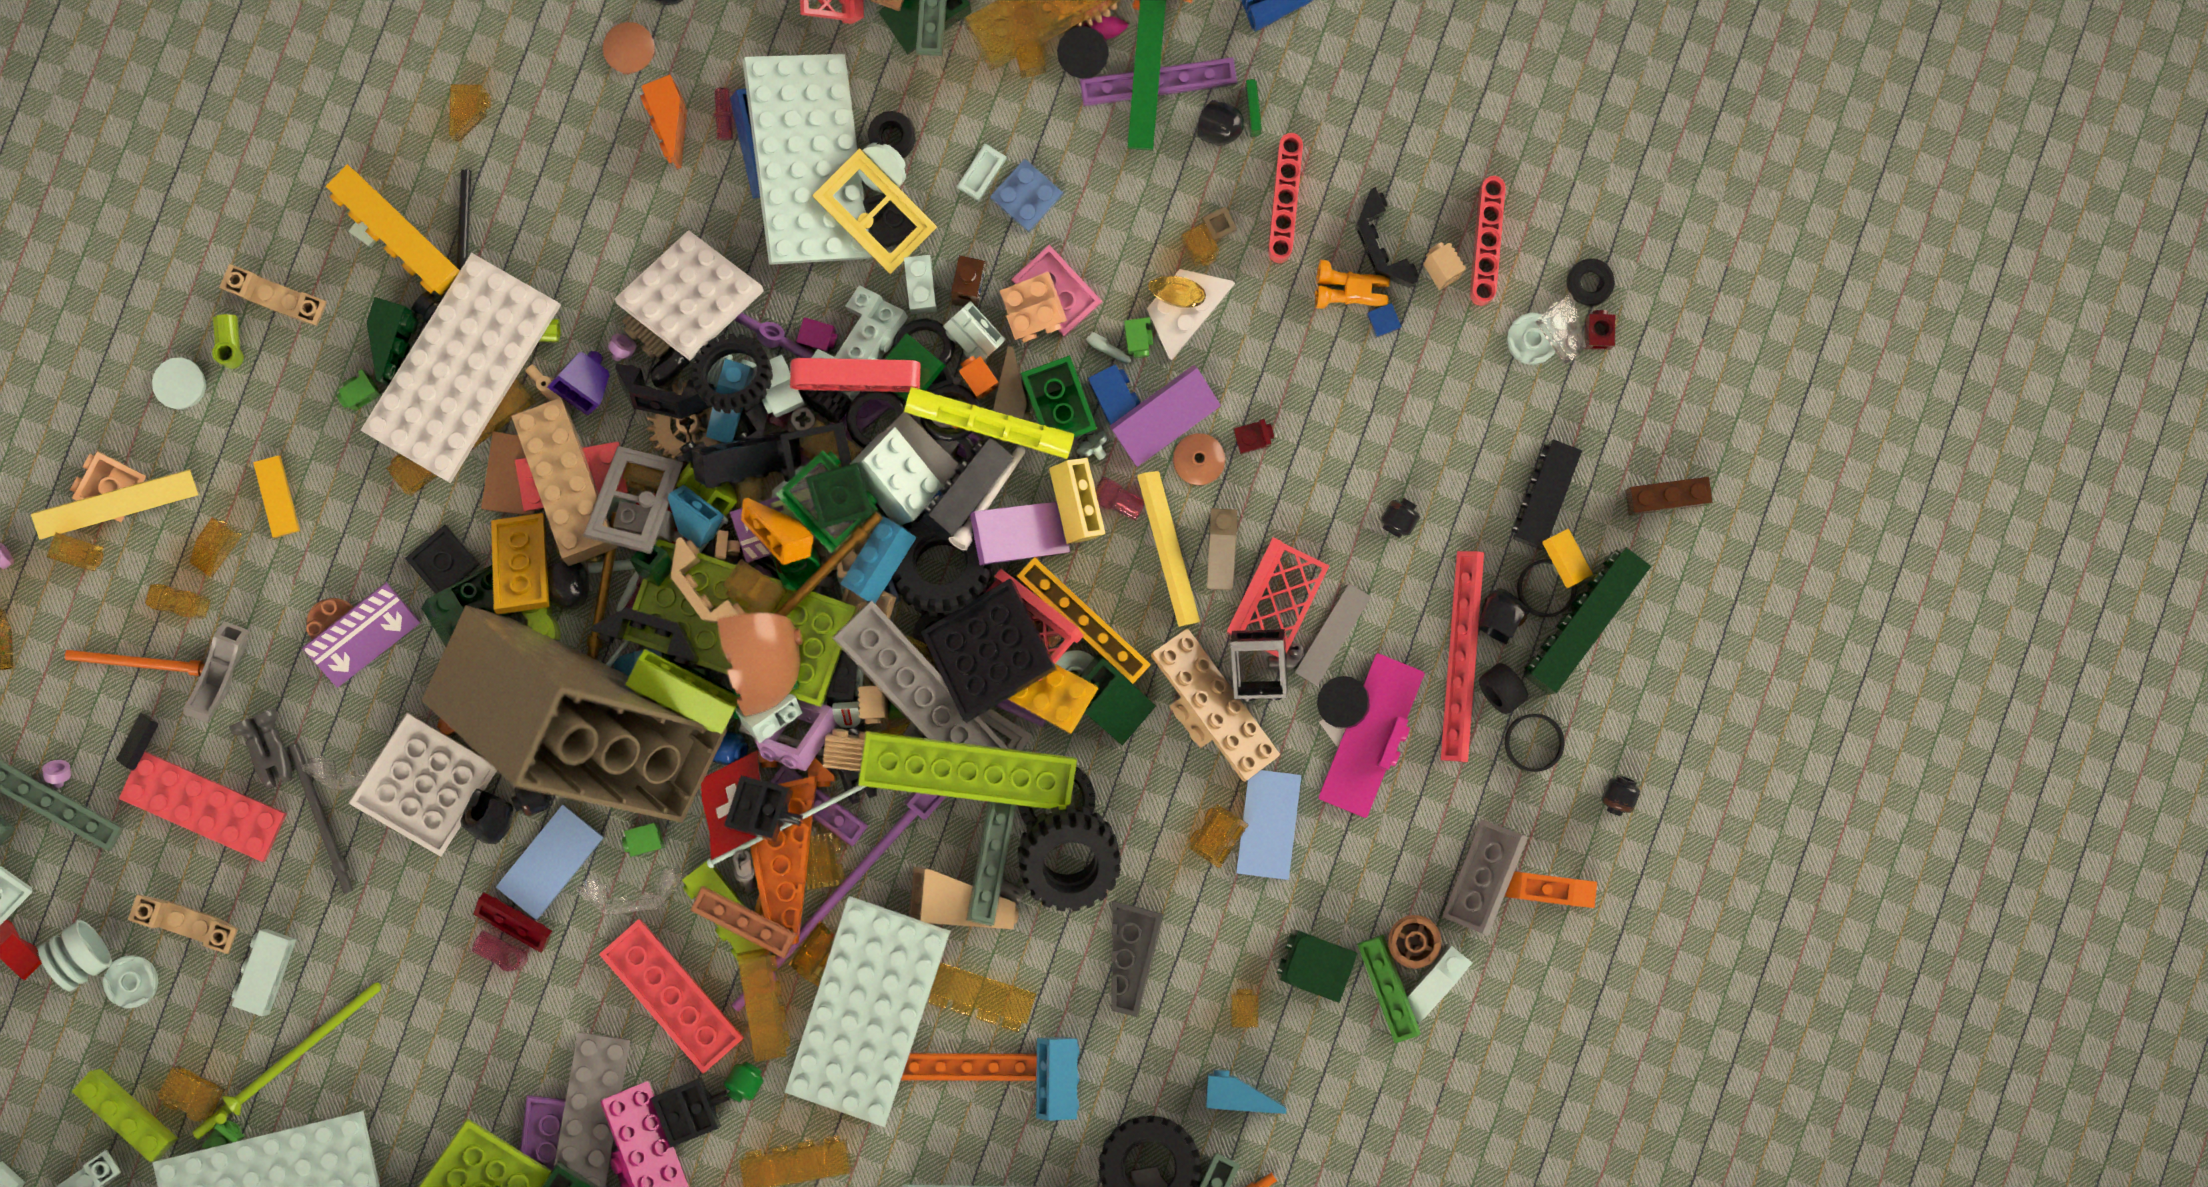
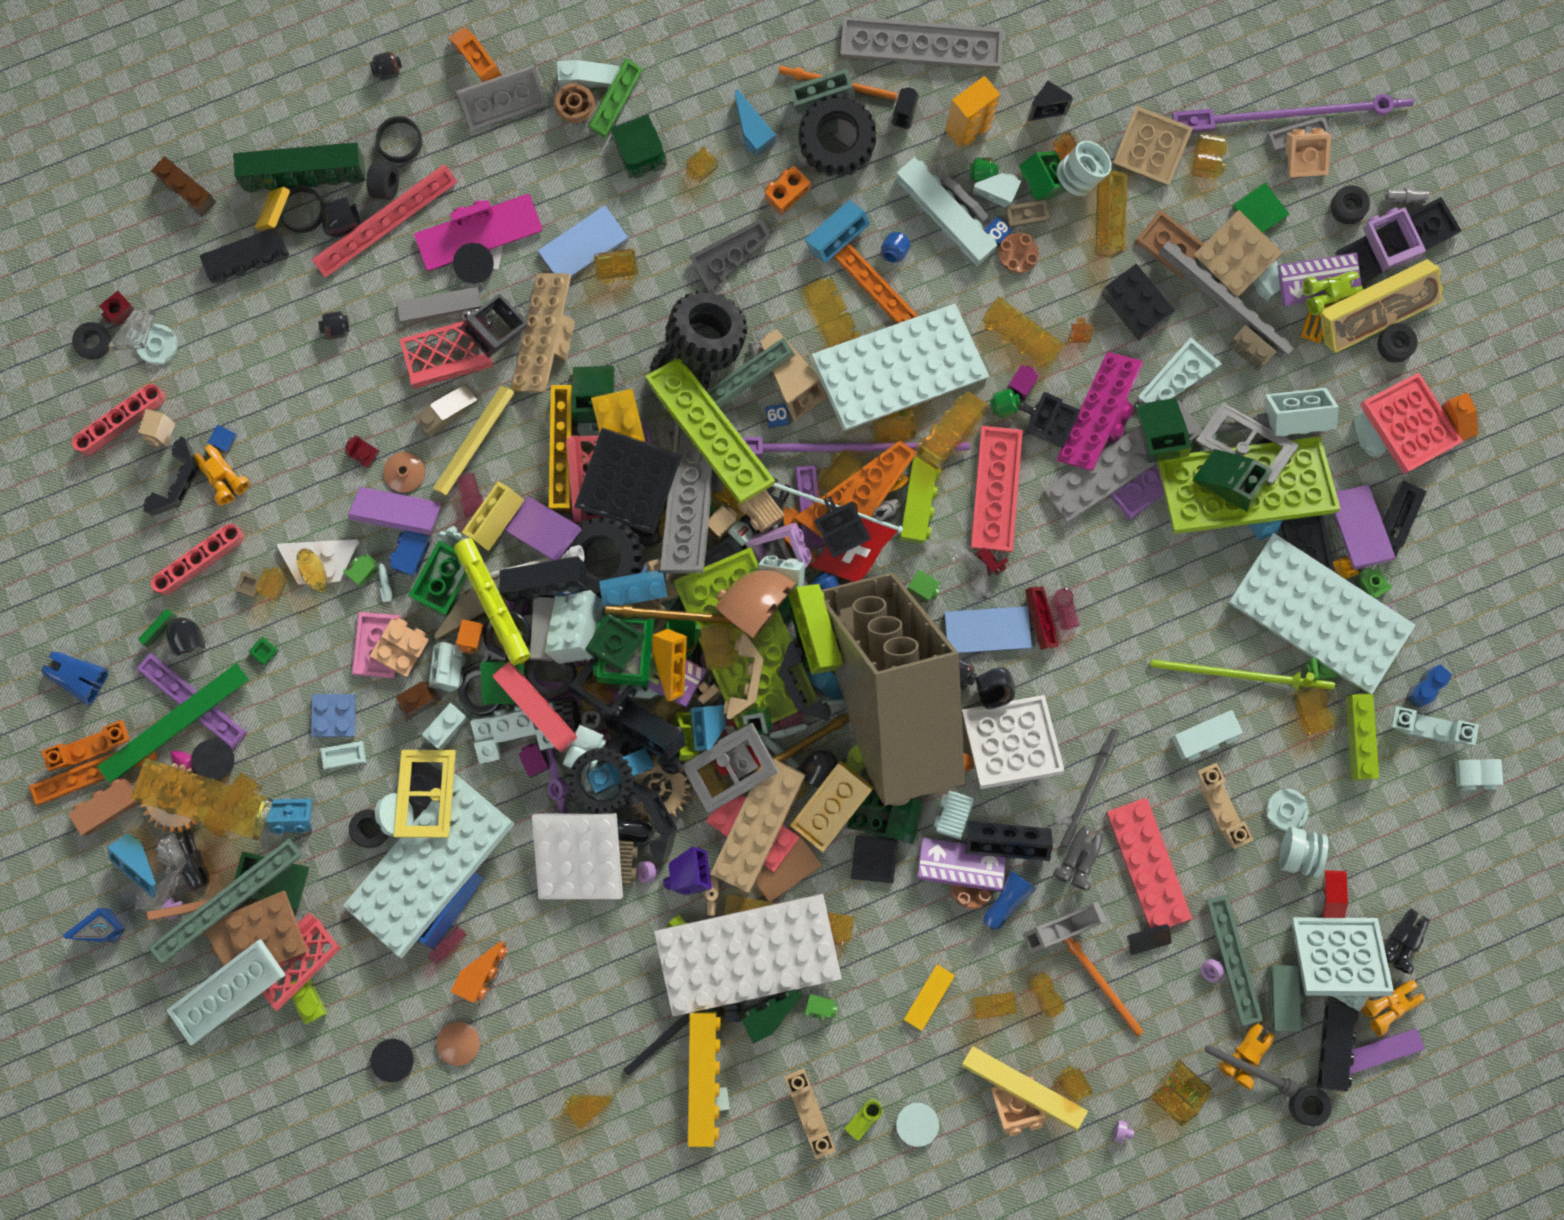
camera: 140 degrees left, 5 degrees down
(290, 655) = (1012, 896): none -> blue piece
(327, 700) = (1008, 841): none -> black brick
(410, 668) = (954, 815): none -> light aqua brick
(613, 924) = (989, 559): none -> dark red bracket
(743, 922) = (915, 481): nougat tile -> none
(748, 1119) = (1023, 381): none -> magenta brick
(933, 854) = (777, 415): none -> blue tile
(968, 78) = (290, 816): none -> dark azure bracket
(991, 1121) = (895, 247): none -> blue head
(1137, 1069) = (791, 193): none -> orange brick
(1145, 184) = (263, 651): none -> green tile

